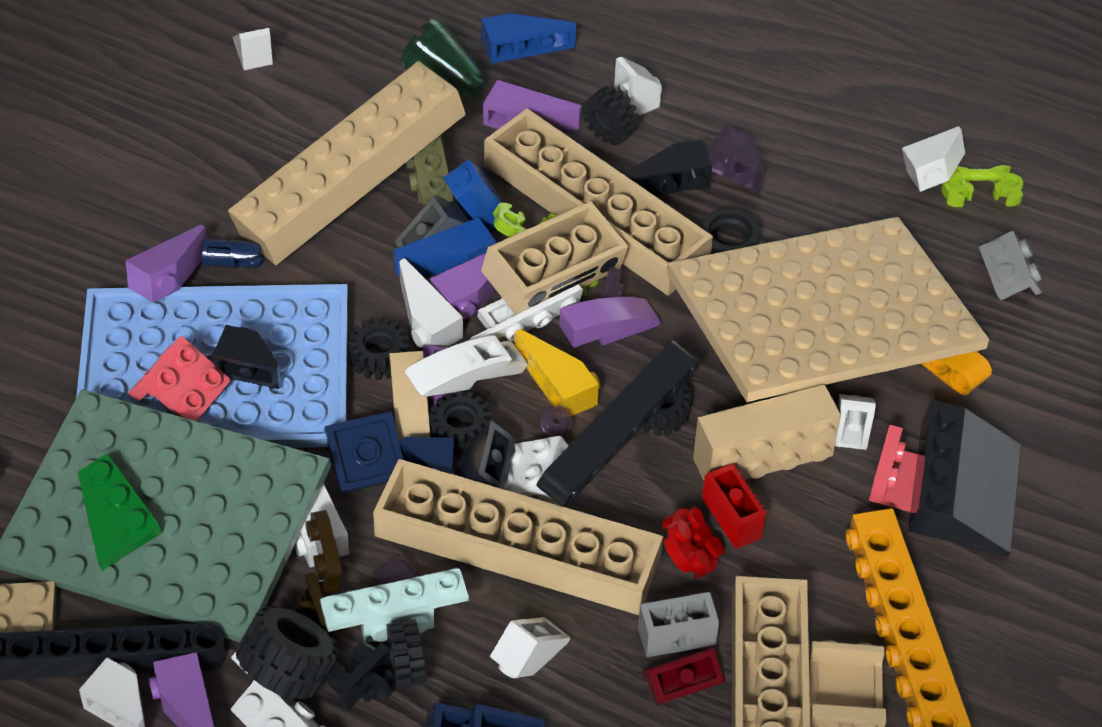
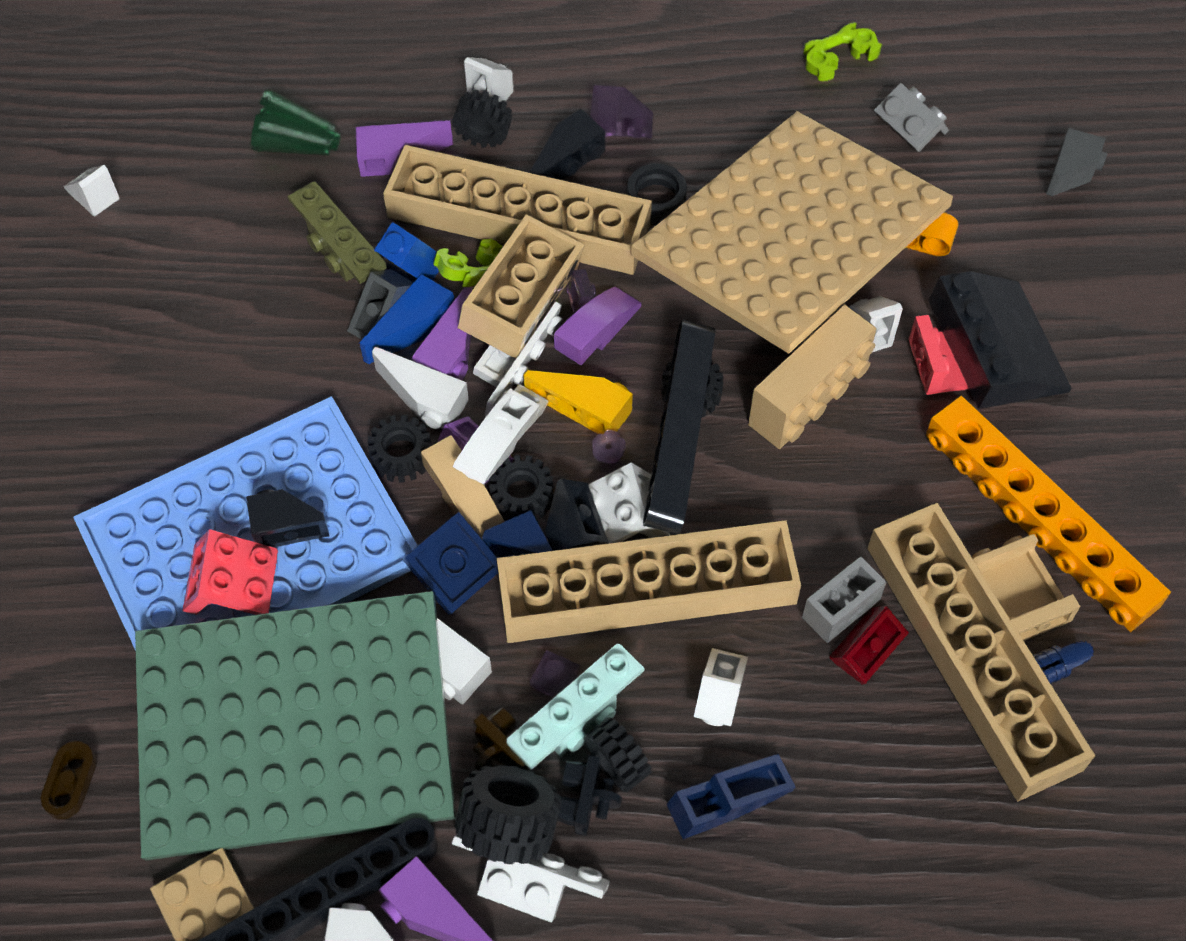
camera: 25 degrees left, 10 degrees up
(114, 512) = (248, 748): green wing -> none
(166, 266) = (143, 459): medium lavender slope -> none
(231, 253) = (197, 414): dark blue hinge -> none
(327, 561) = (471, 673): dark brown plate -> none
(347, 162) = (264, 273): tan brick -> none
(523, 36) = (350, 72): blue slope -> none
(691, 542) = (809, 513): red plate -> none
(734, 505) = (822, 457): red brick -> none
(934, 158) = (790, 43): white slope -> none

